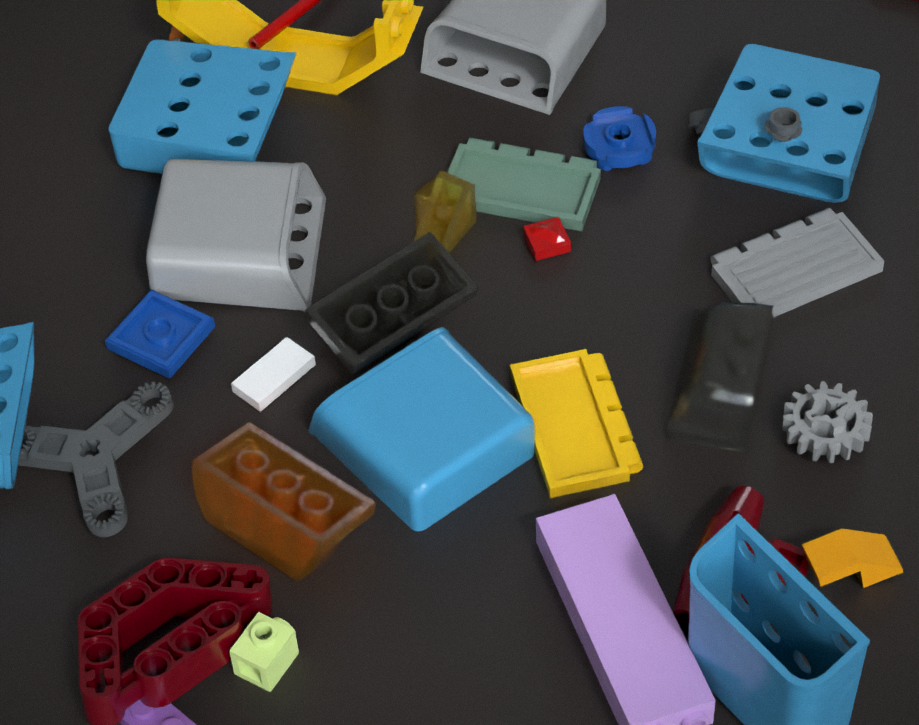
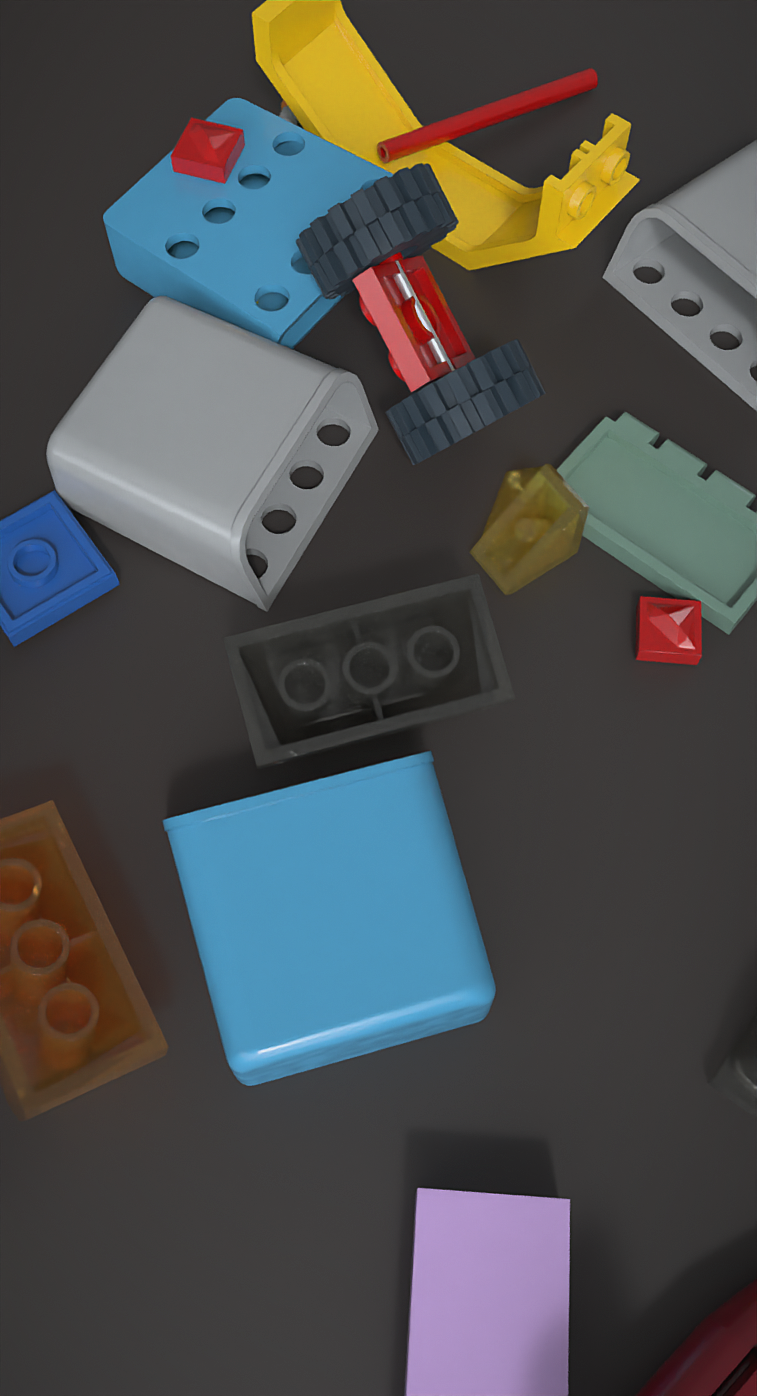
camera: 20 degrees right, 15 degrees up
(155, 73) = (208, 150): none -> red tile
(273, 374) = (160, 701): white tile -> none
(291, 86) = (373, 248): none -> black plate
(577, 422) = (566, 993): yellow hinge -> none

